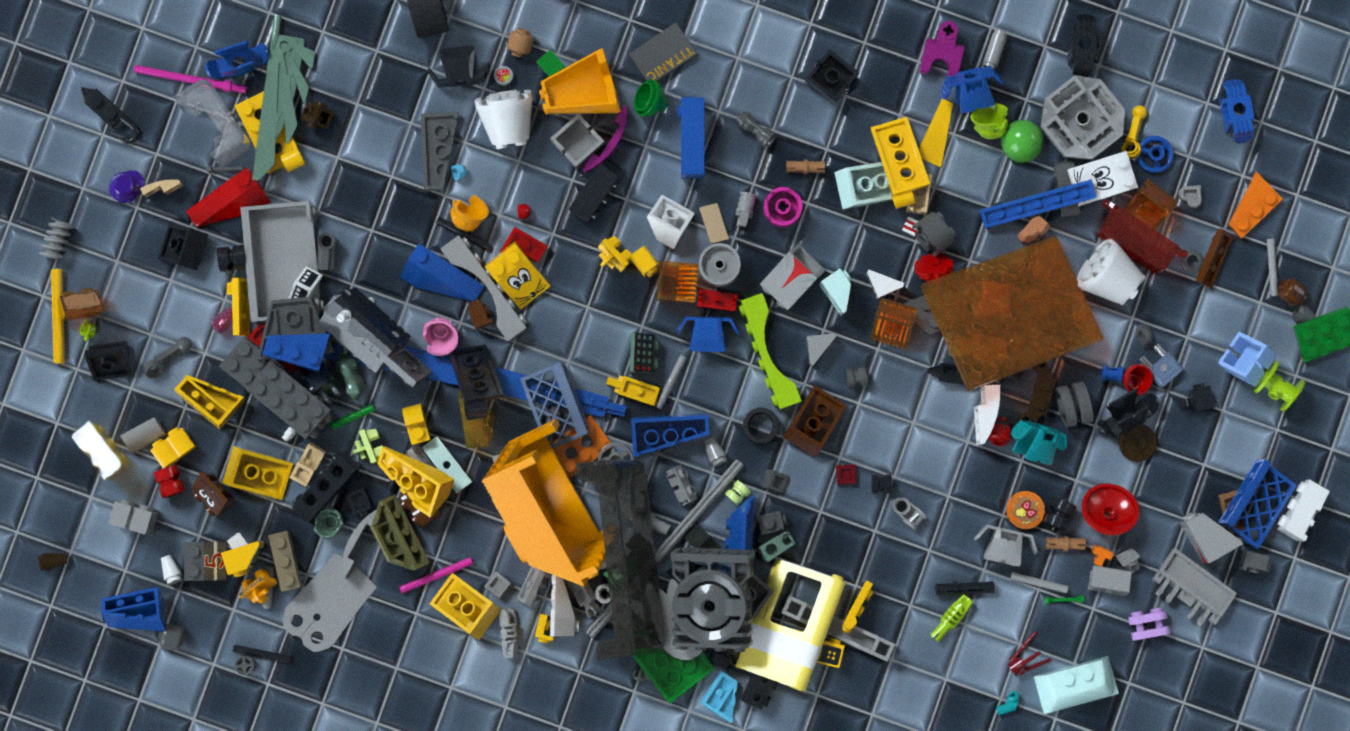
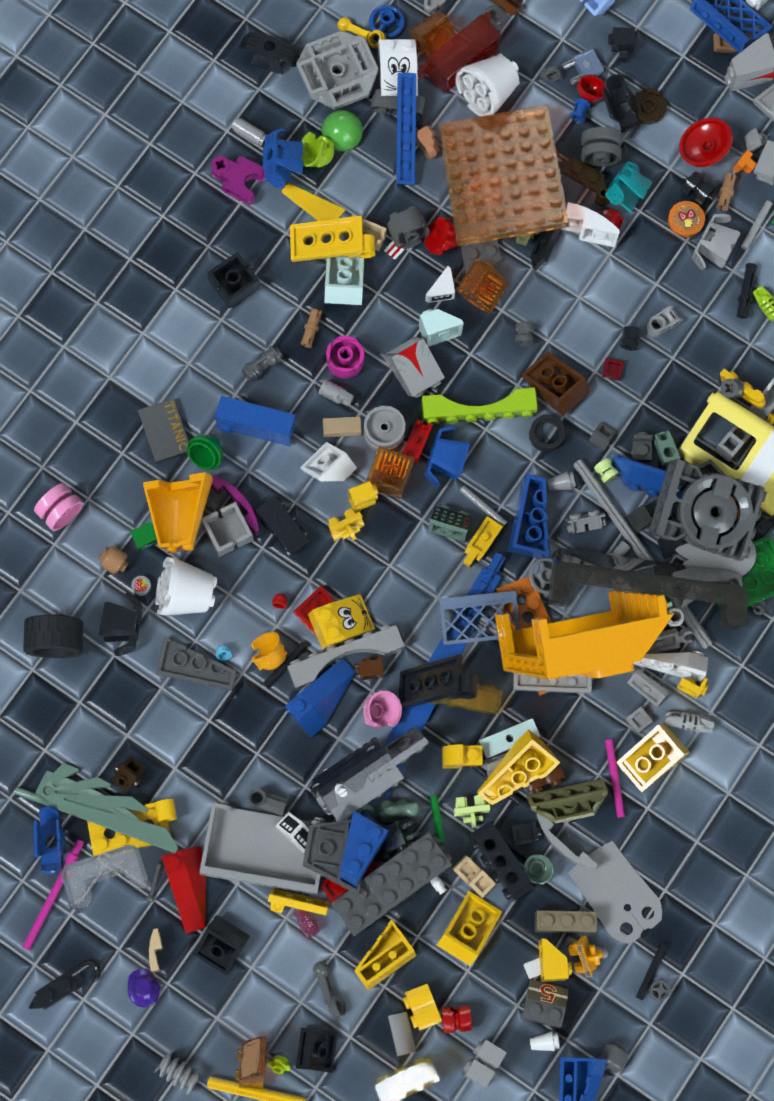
camera: 80 degrees left, 10 degrees down
(213, 494) = (481, 976): reddish brown slope -> none
(231, 258) = (247, 896): black wheel -> none
(817, 345) = (486, 362): light grey slope -> none
(851, 600) = (736, 388): none -> dark grey wheel

